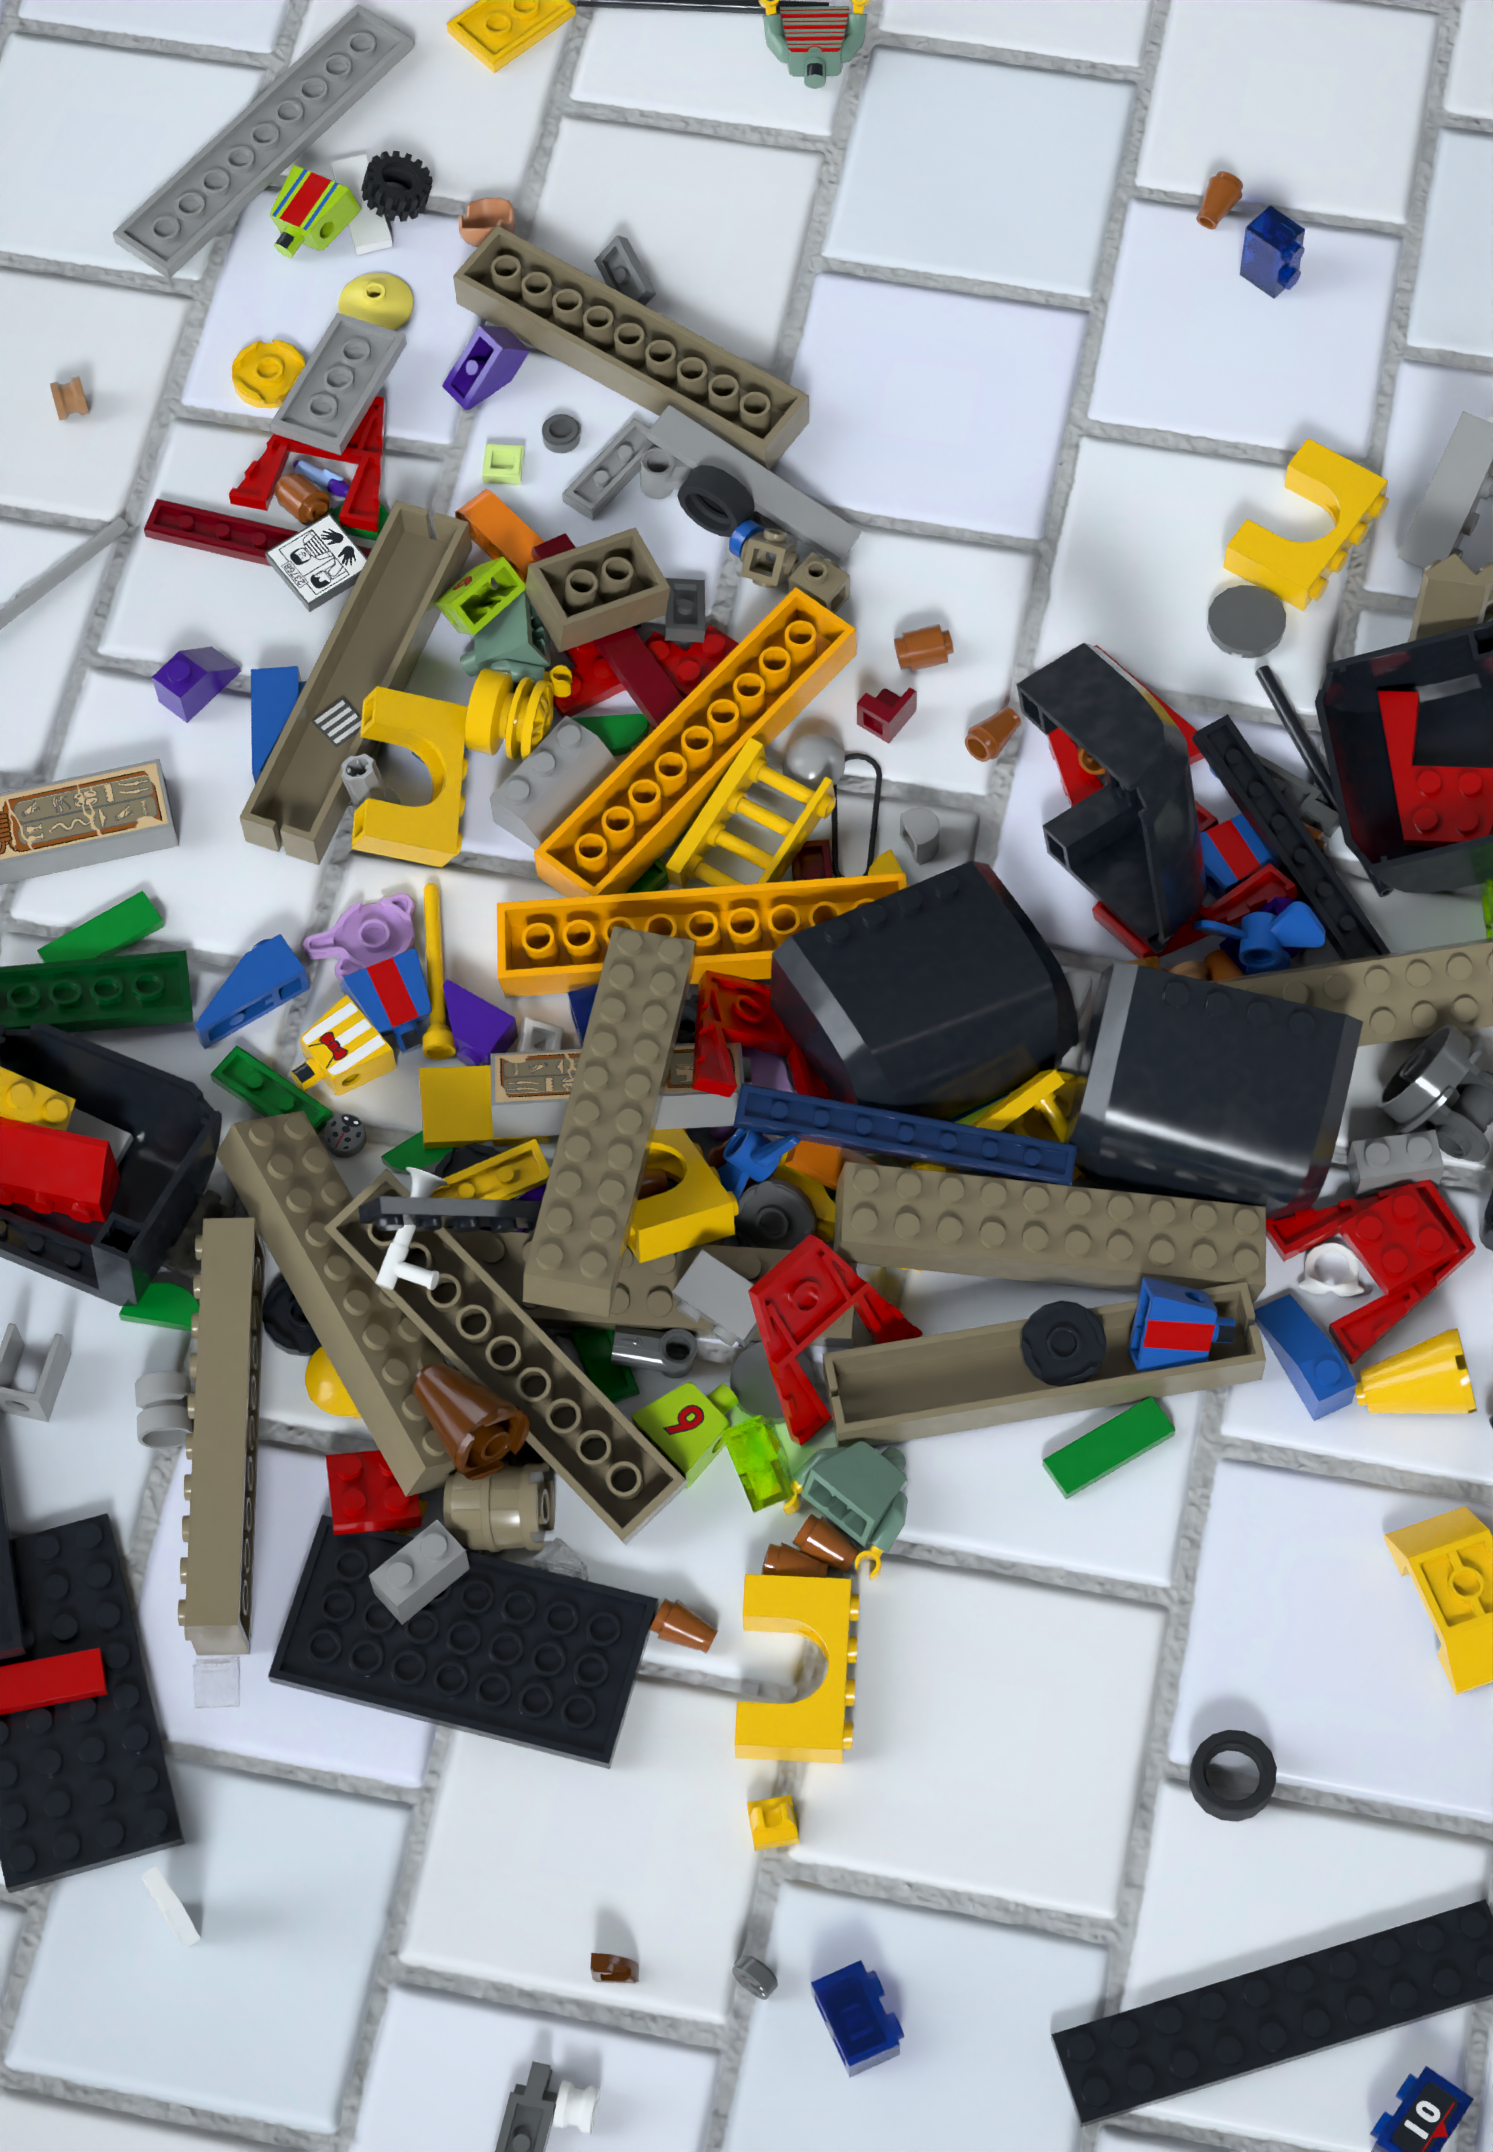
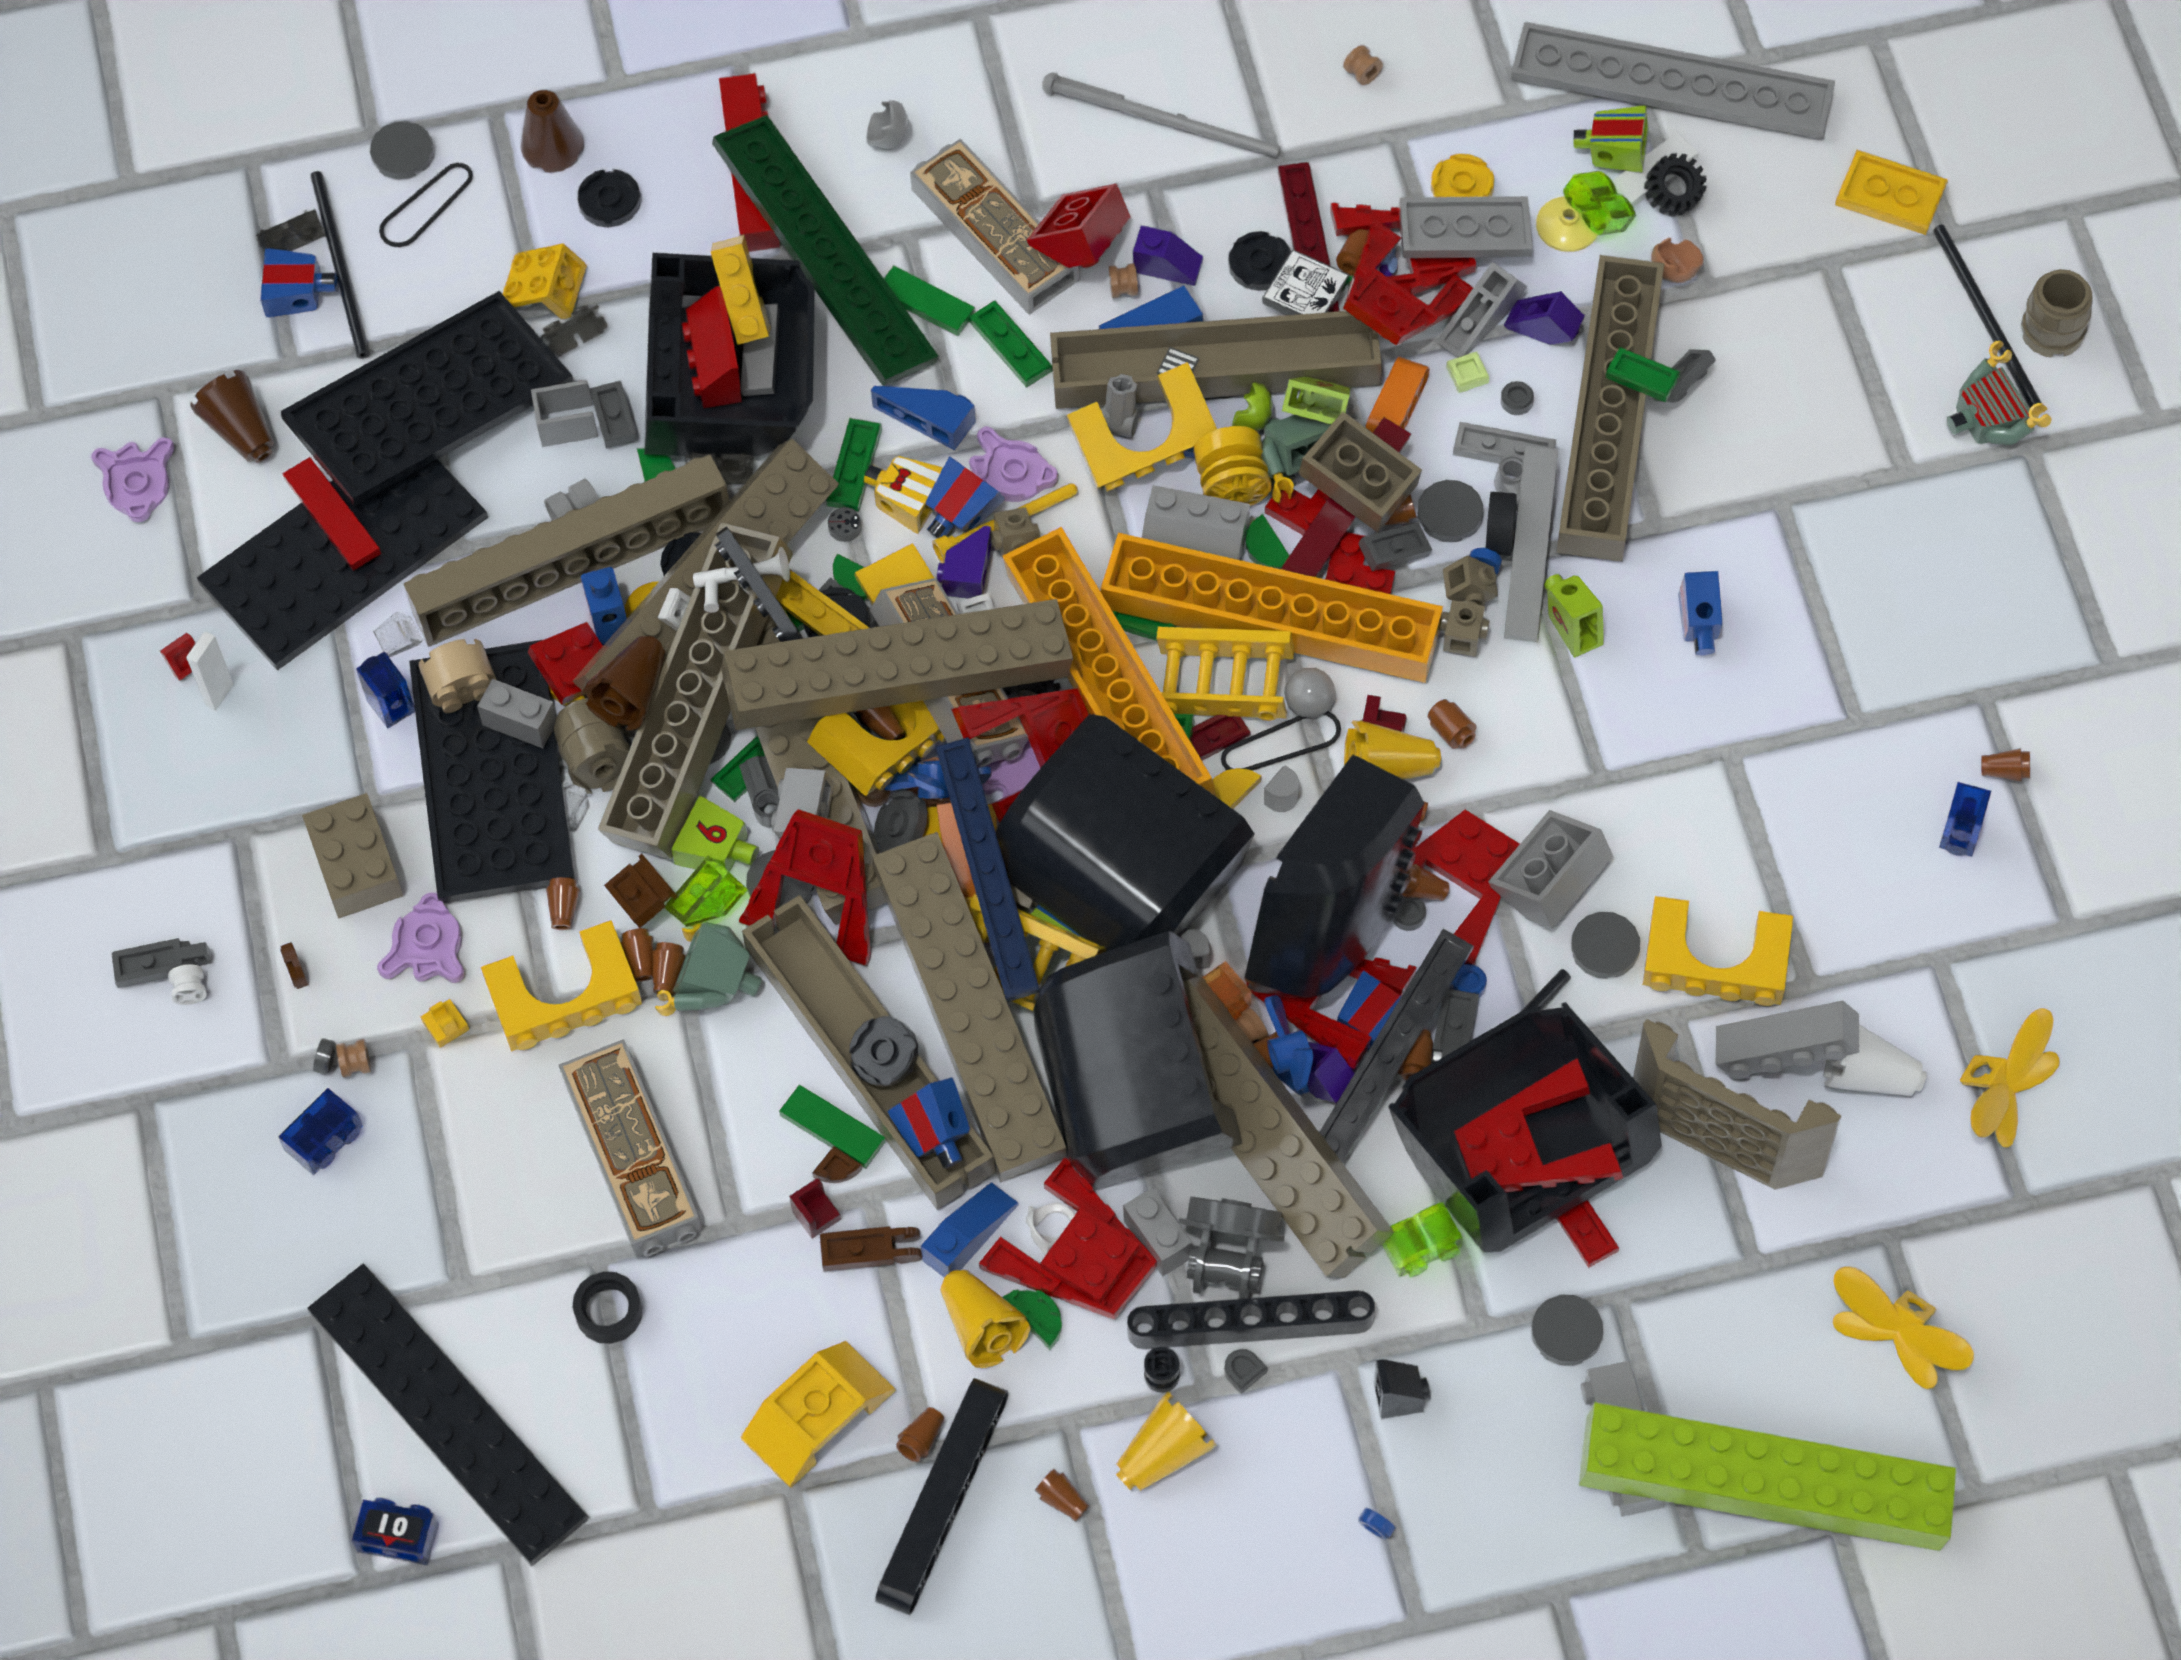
camera: 65 degrees right, 0 degrees up
(43, 1317) = (613, 414): none -> dark grey plate
(110, 1944) = (176, 655): none -> red tile
(114, 736) = (1081, 226): none -> red slope
(200, 731) = (1123, 280): none -> medium nougat wheel
(208, 876) = (1010, 343): none -> green tile
(249, 596) = (1257, 259): none -> black tile
(299, 1713) = (385, 689): none -> clear blue brick
(314, 1424) = (603, 598): none -> blue torso
(334, 1614) = (457, 674): none -> tan brick
(370, 259) = (1599, 202): none -> clear neon green brick
(389, 489) = (1388, 306): none -> red wing
(397, 1330) = (674, 608): none -> white tile
(441, 670) = (1259, 408): none -> lime hair
(442, 417) = (1481, 310): none -> light grey slope
(466, 961) = (1013, 530): none -> dark tan brick
(500, 1841) = (352, 855): none -> dark tan brick
(622, 296) = (1642, 374): none -> green tile
(653, 1803) = (426, 942): none -> lavender tile
(672, 543) = (1450, 510): none -> dark grey tile
(717, 1530) = (640, 891): none -> reddish brown plate
(775, 1942) = (353, 1058): none -> medium nougat wheel
(855, 481) = (1575, 613): none -> lime torso
(915, 371) = (1701, 610): none -> blue torso
(932, 724) = (1392, 750): none -> yellow cone
(1043, 1672) = (630, 1149): none -> brick
(1142, 625) = (1552, 868): none -> light grey slope
(1160, 1463) = (836, 1167): none -> reddish brown tile
(1208, 1505) = (814, 1208): none -> dark red panel
(1278, 1471) = (867, 1247): none -> reddish brown hinge
(1430, 1321) = (1040, 1313): none -> green tile

